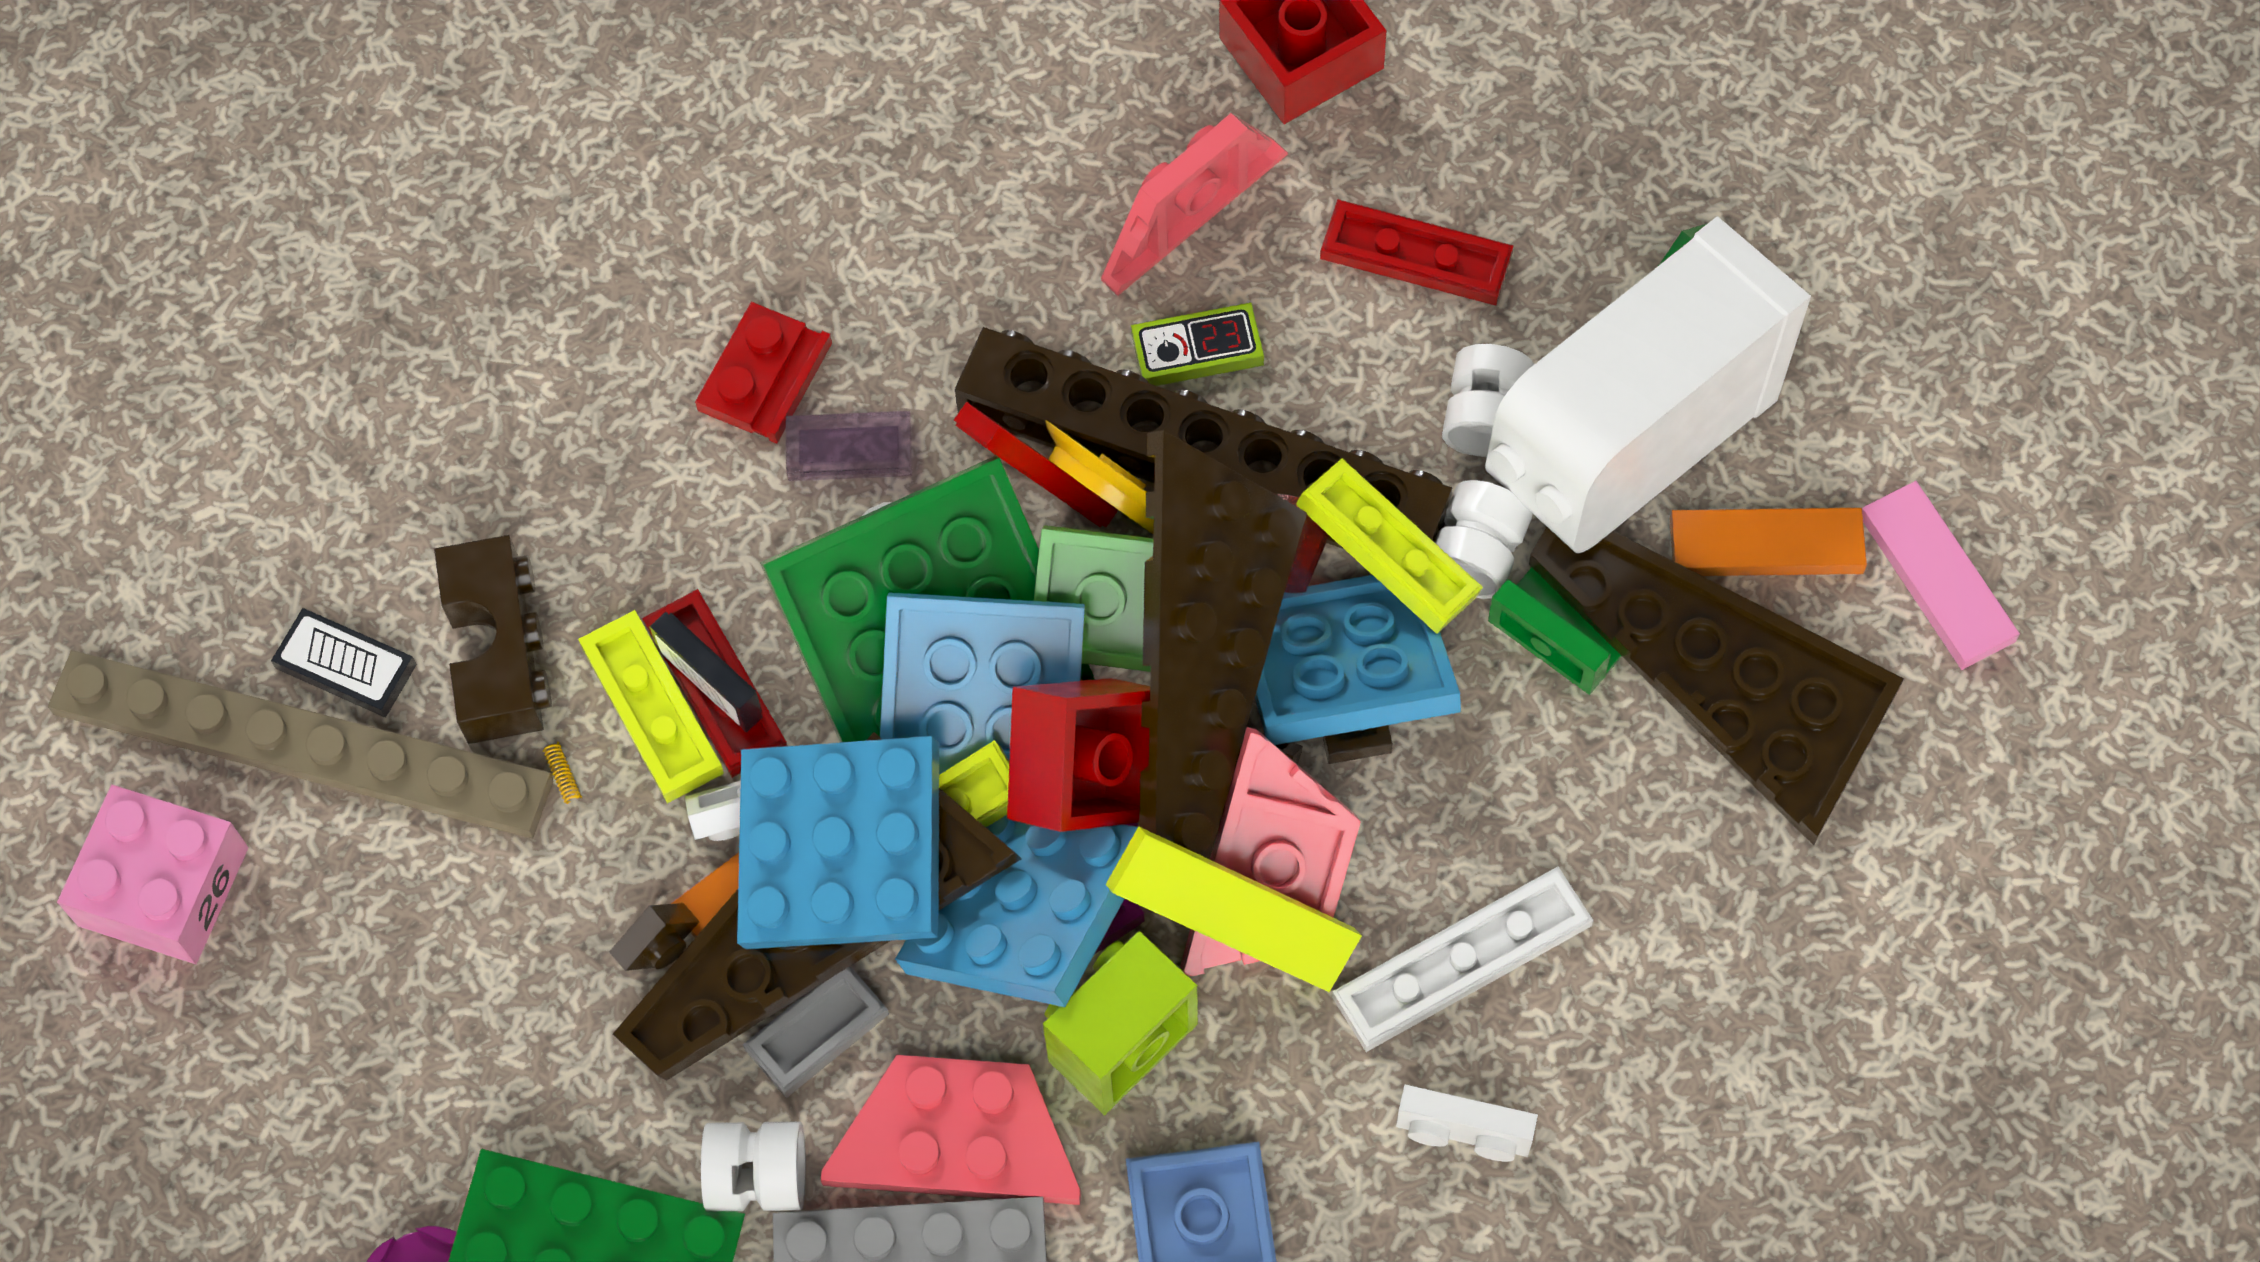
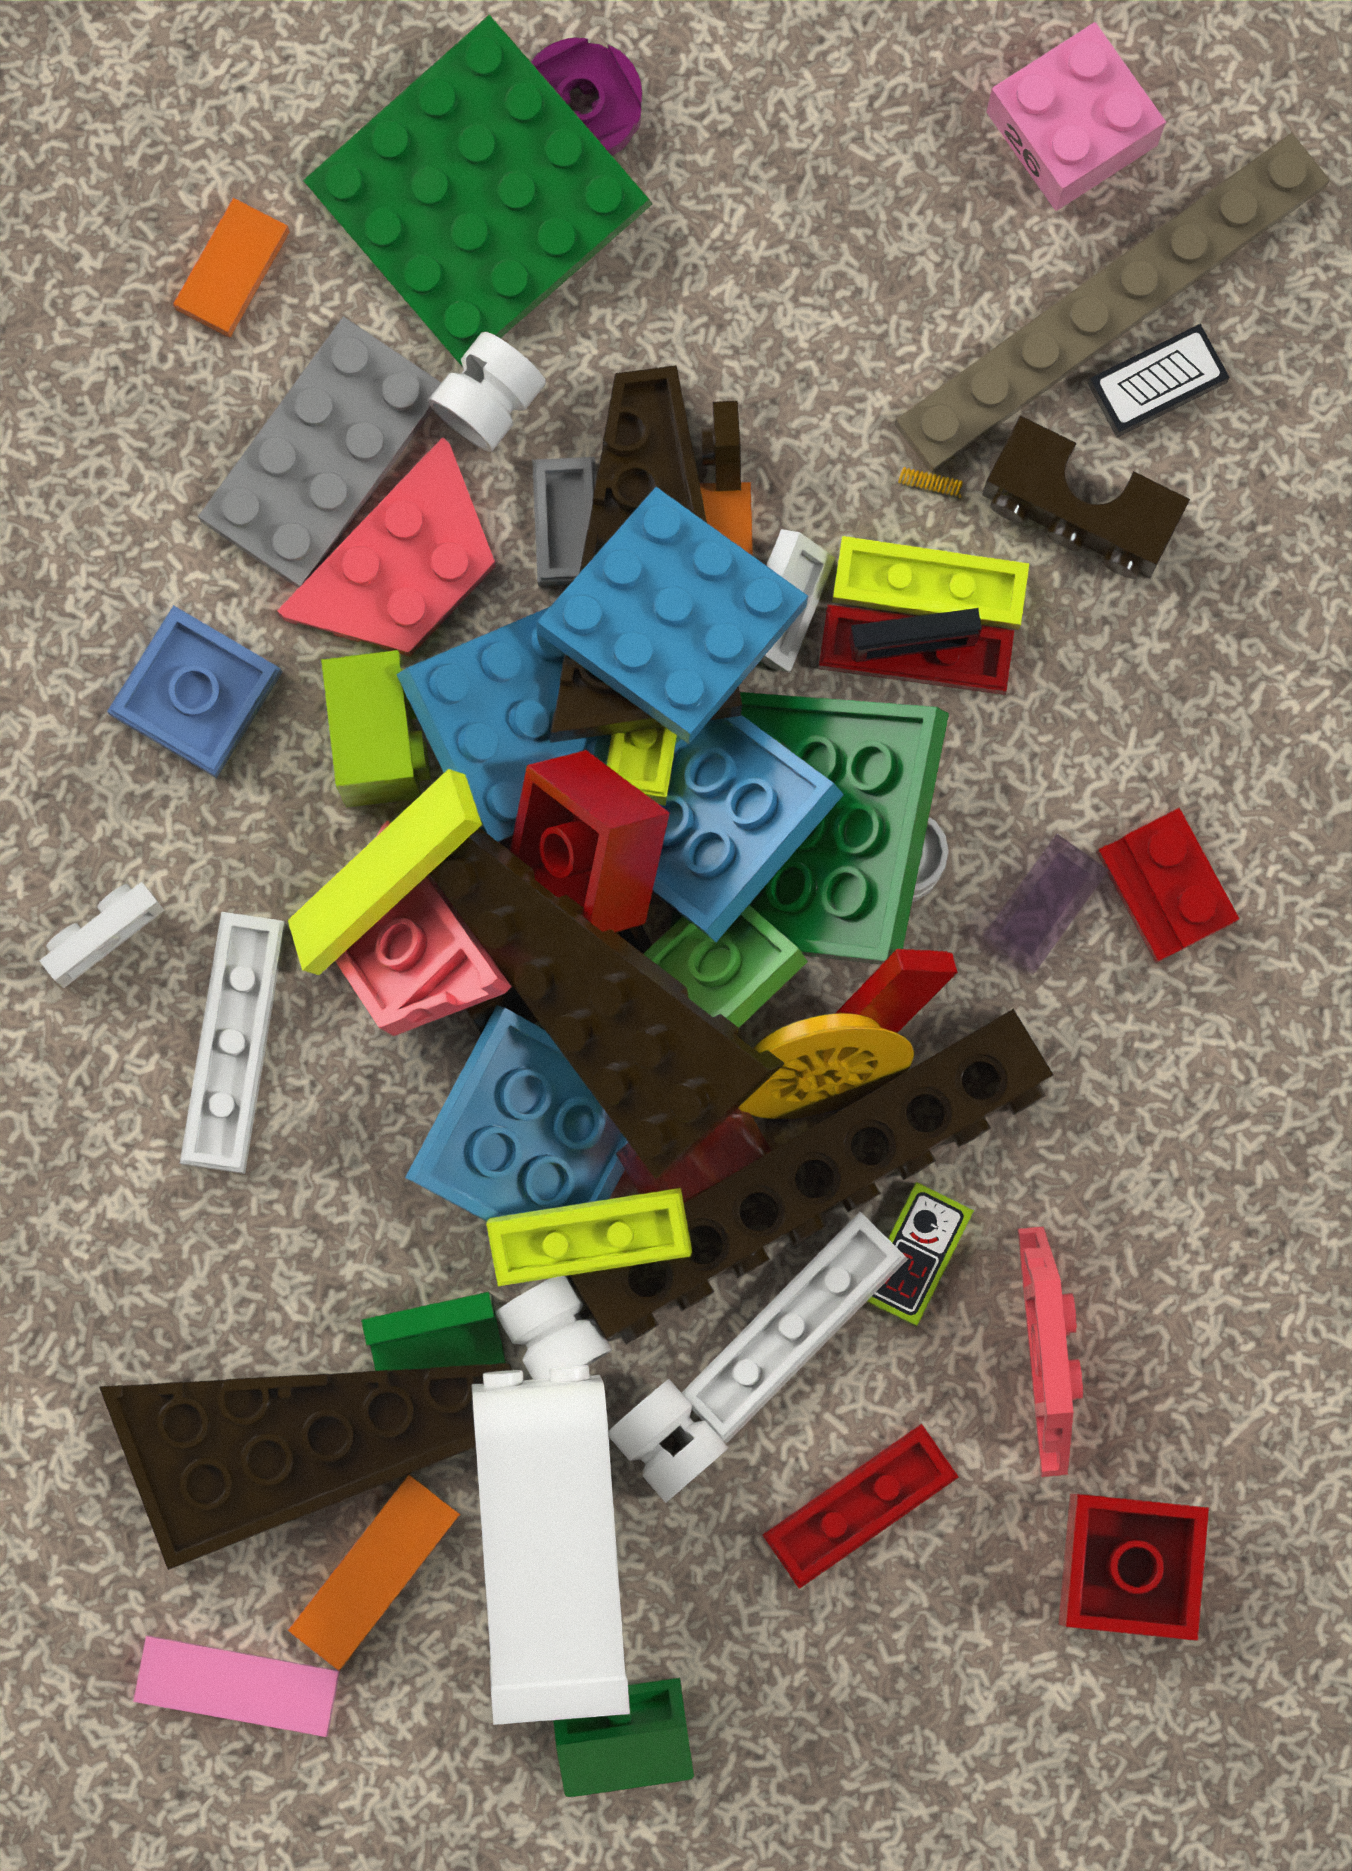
camera: 125 degrees right, 15 degrees up
(1326, 383) = (793, 1327): none -> white tile

